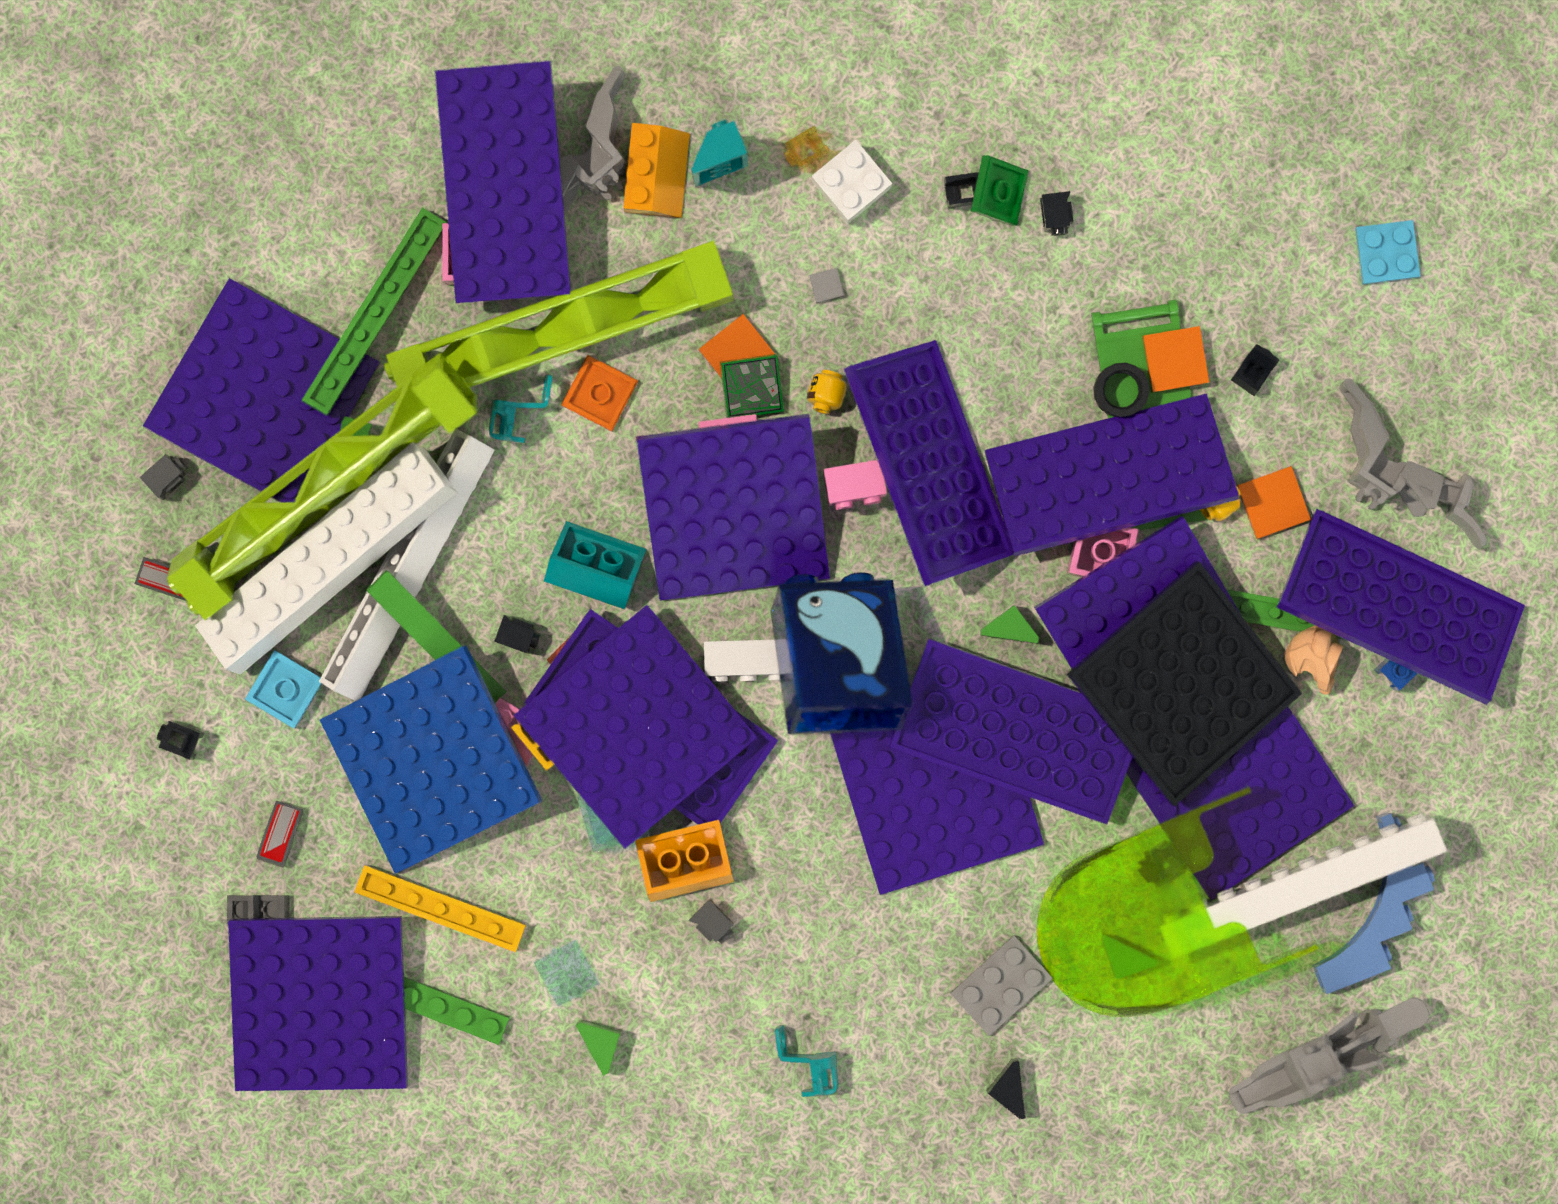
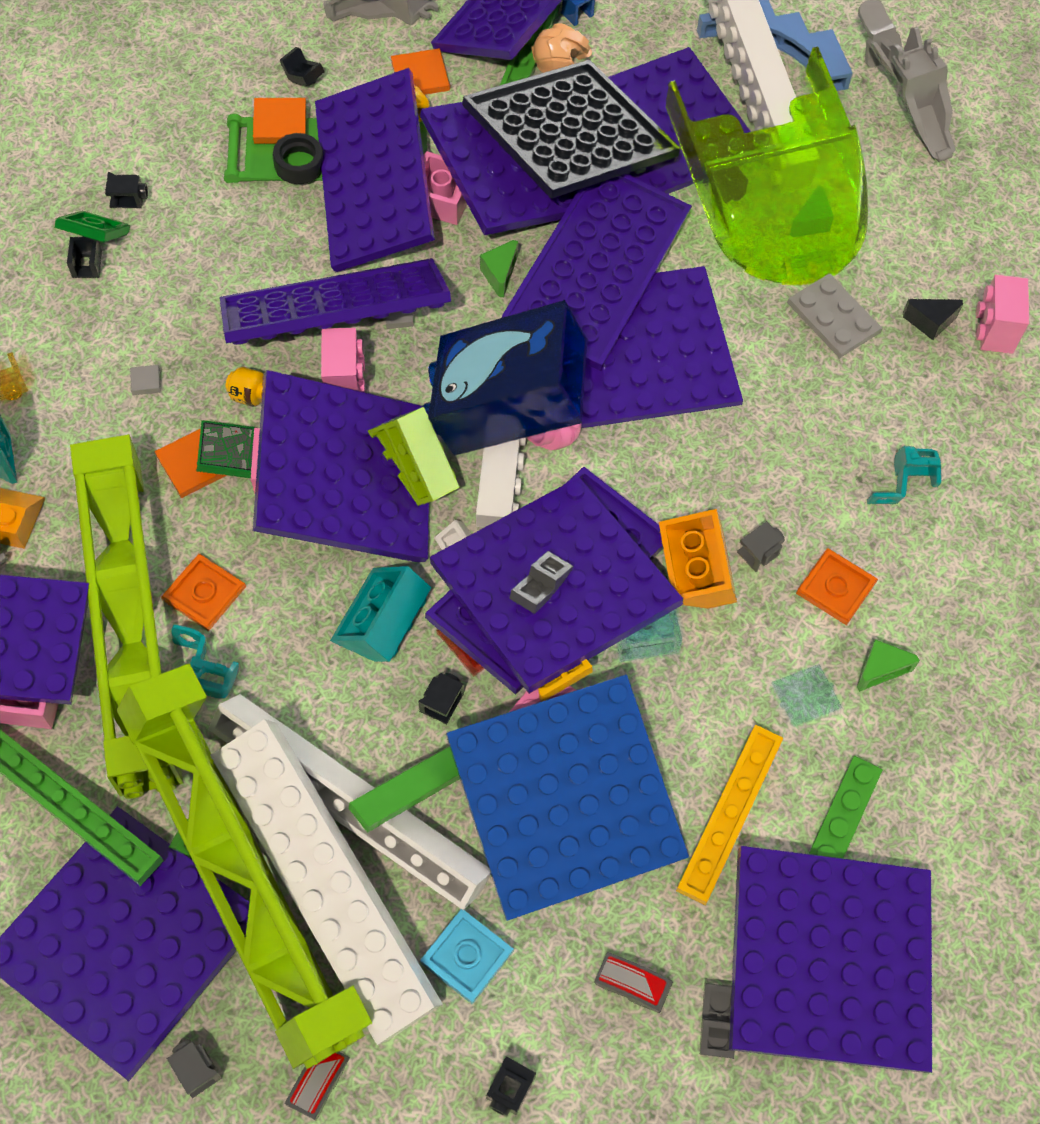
camera: 85 degrees left, 25 degrees down
(621, 714) = (542, 582): none -> dark grey slope
(682, 997) = (837, 586): none -> orange tile
(686, 624) = (451, 534): none -> white slope
(754, 576) = (418, 455): none -> lime wedge
(851, 182) = (50, 342): white brick -> none
(1011, 1160) = (1003, 314): none -> bright pink brick

